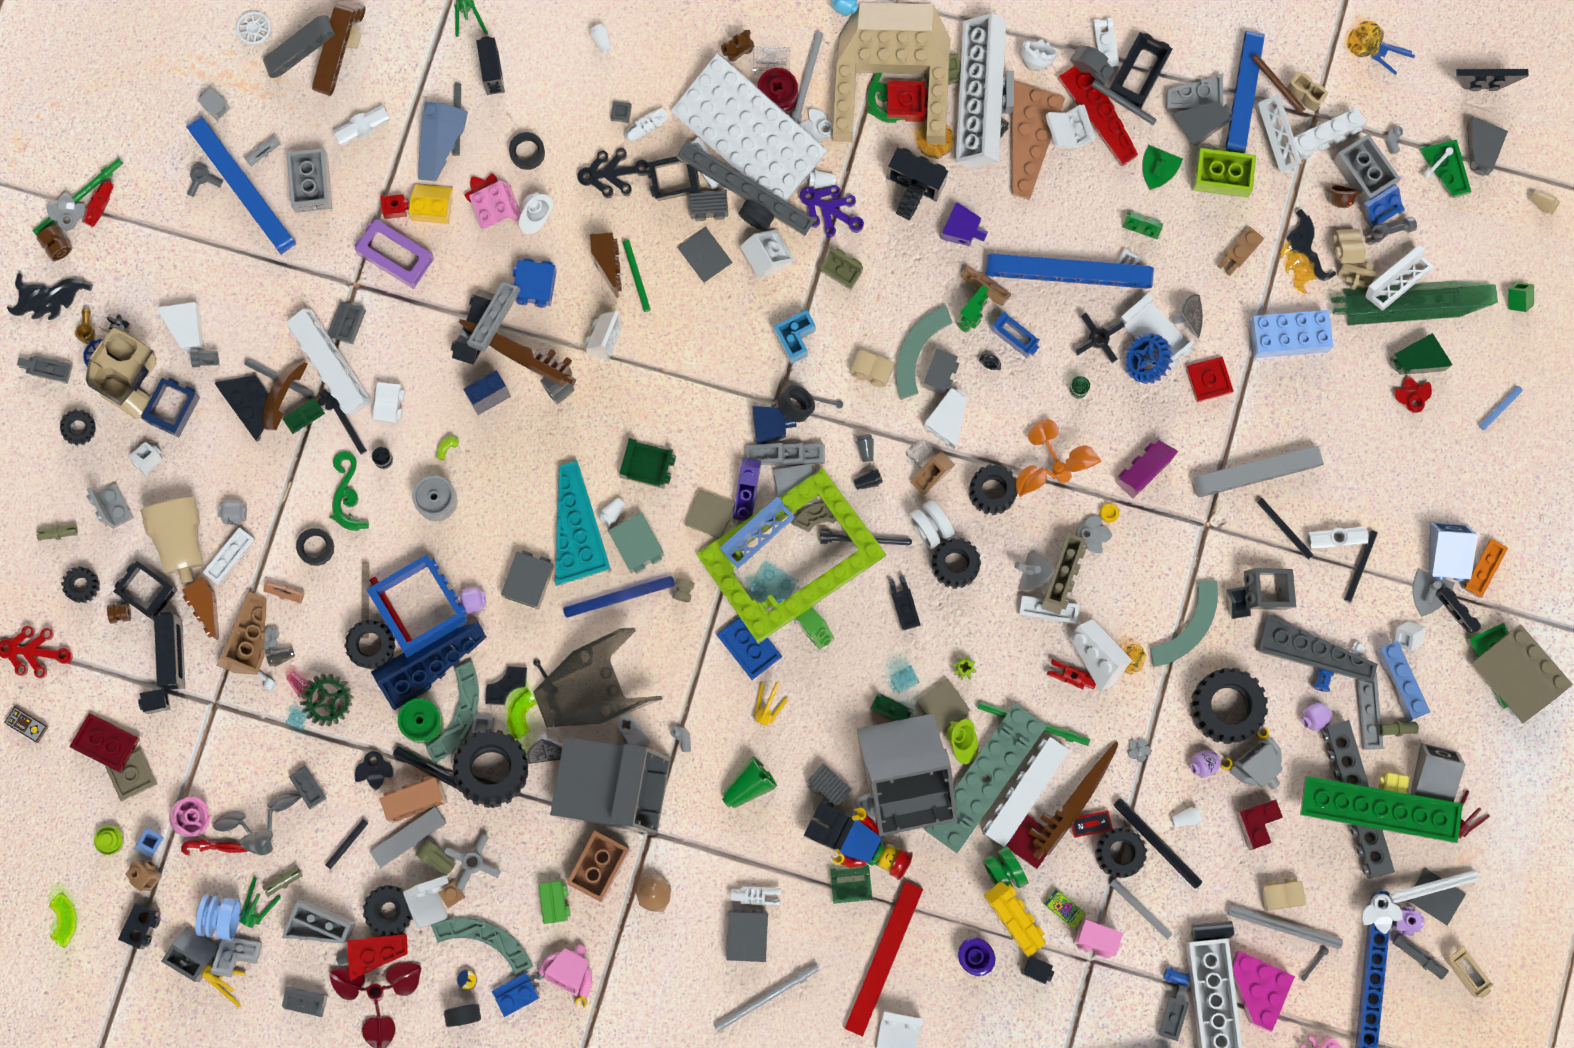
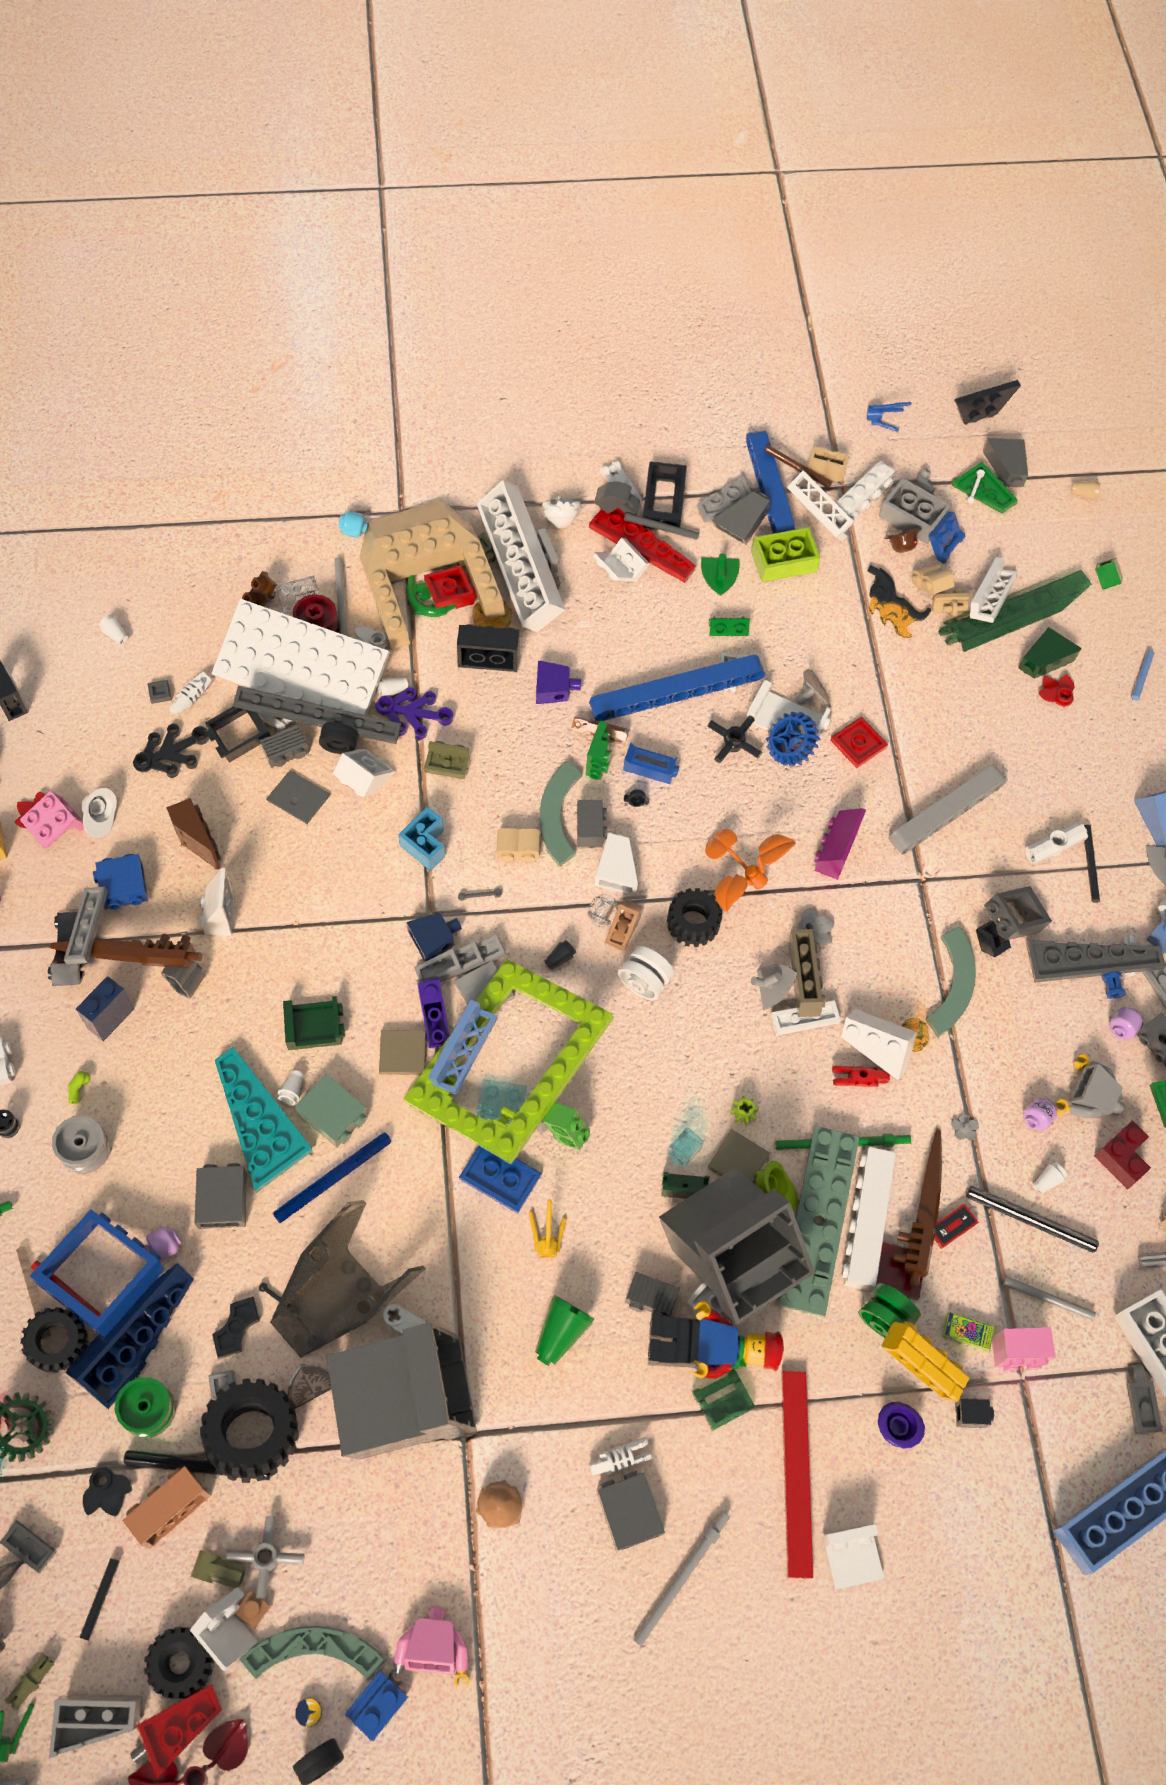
camera: 25 degrees left, 15 degrees down
(407, 837) = (174, 1559): light grey tile -> none
(463, 718) = (196, 1384): sand green tile -> none
(517, 714) = (260, 1352): clear neon green cylinder -> none
(522, 137) = (70, 771): black tyre -> none
(553, 902) = (383, 1566): bright green brick -> none
(598, 866) = (421, 1498): nougat brick -> none
(636, 275) = (232, 840): green bar -> none
(683, 590) = (403, 1142): dark tan wheel -> none
(683, 736) = (465, 1306): light grey arm -> none
(803, 397) = (452, 904): black tyre -> none
(813, 516) = (516, 1012): dark tan tile -> none
(828, 536) = (539, 1028): black piece -> none
(865, 445) = (543, 924): dark grey cone -> none
(904, 605) = (651, 1069): black hinge -> none
(910, 202) = (491, 675): black tyre -> none
(967, 551) = (693, 989): black tyre -> none
(1030, 135) = (585, 585): nougat wing -> none
(1079, 383) = (736, 791): clear green wheel -> none
(1109, 513) = (821, 901): yellow tile -> none
(1137, 848) = (1013, 1231): black tyre -> none
(1176, 977) = (1123, 1358): blue pin -> none
(1212, 931) = (1136, 1291): black brick -> none
(1242, 250) = (833, 618): medium nougat hinge -> none
(1253, 697) = (1053, 1026): black tyre -> none
(1284, 527) = (1000, 854): black bar -> none
(1291, 334) = (917, 673): light blue brick -> none
(1373, 42) = (866, 410): clear yellow plate -> none
(1382, 231) = (957, 555): flat silver bar -> none

